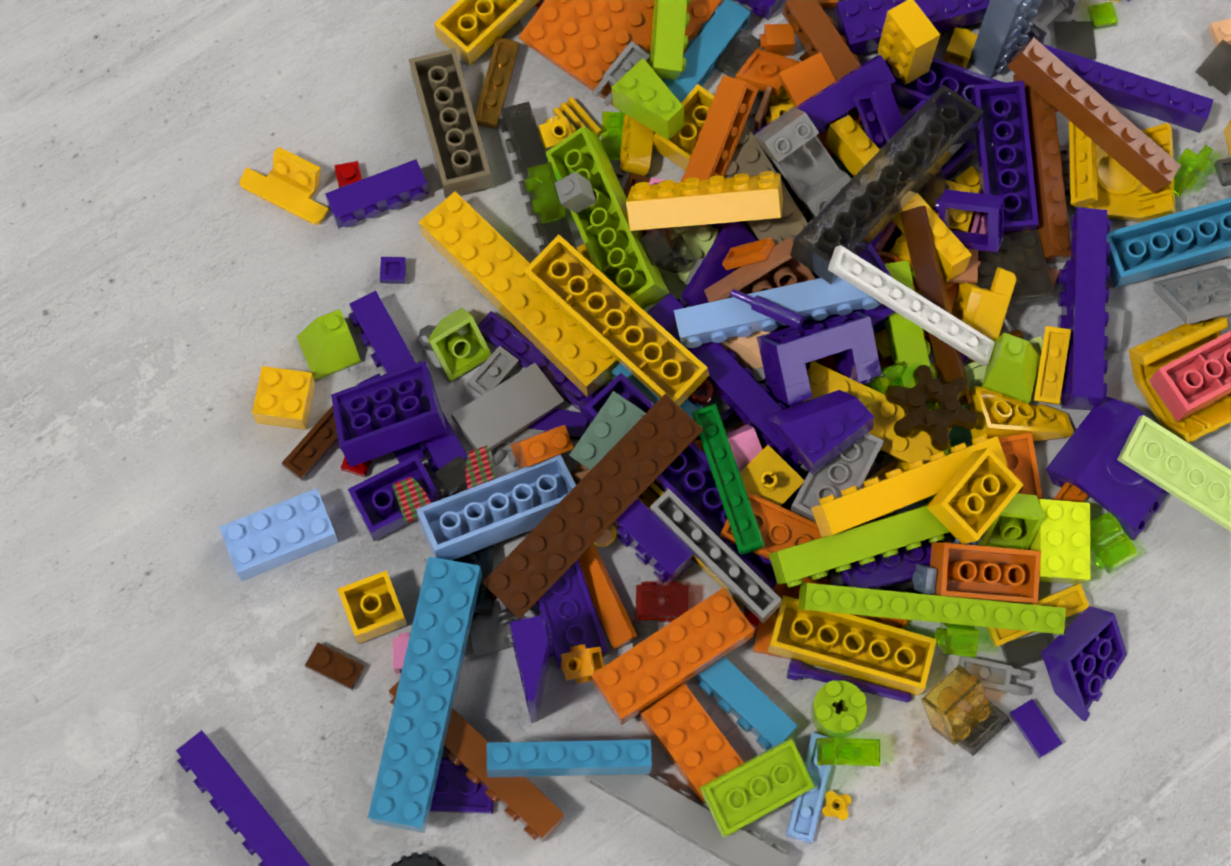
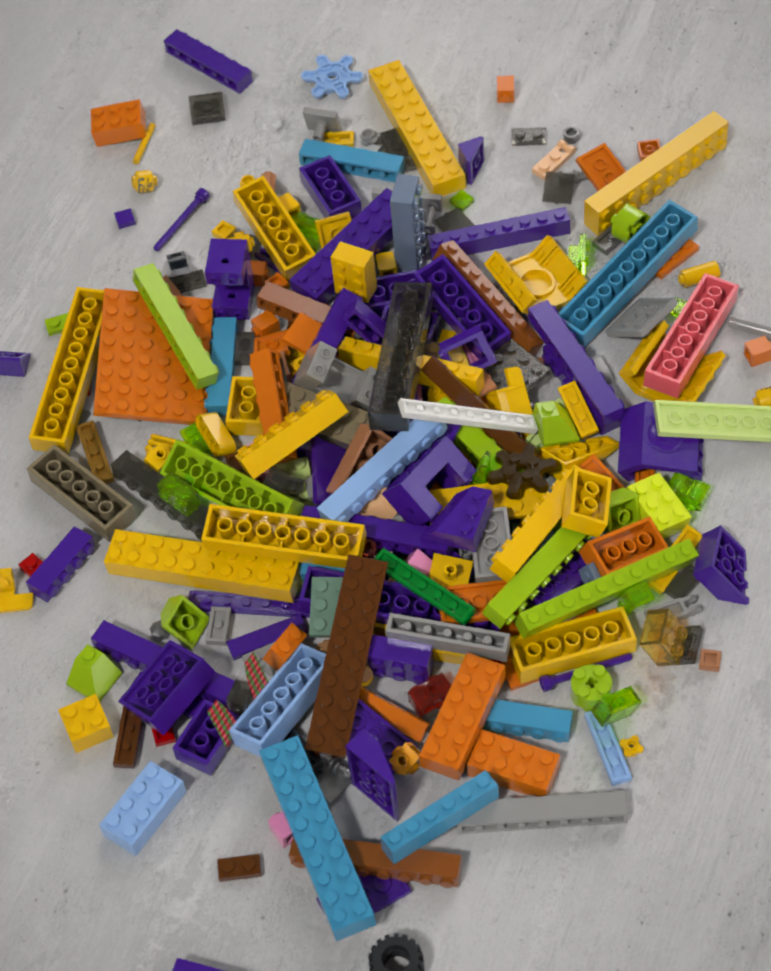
camera: 25 degrees left, 15 degrees down
(372, 607) = (240, 812): yellow brick -> none
(393, 270) = (105, 604): dark purple plate -> none
(508, 408) = (245, 635): light grey tile -> none
(575, 192) = (200, 479): light grey brick -> none
(627, 59) = (177, 396): light grey hinge -> none
(648, 100) = (209, 401): lime wedge -> none
(748, 253) = (340, 450): orange tile -> none
(756, 787) = (573, 761): lime tile -> none
(771, 309) = (380, 468): dark purple axle -> none
(994, 760) = (710, 660): none -> nougat tile
(1035, 728) = (721, 625): dark purple tile -> none
(1094, 115) = (500, 250): dark orange brick -> none

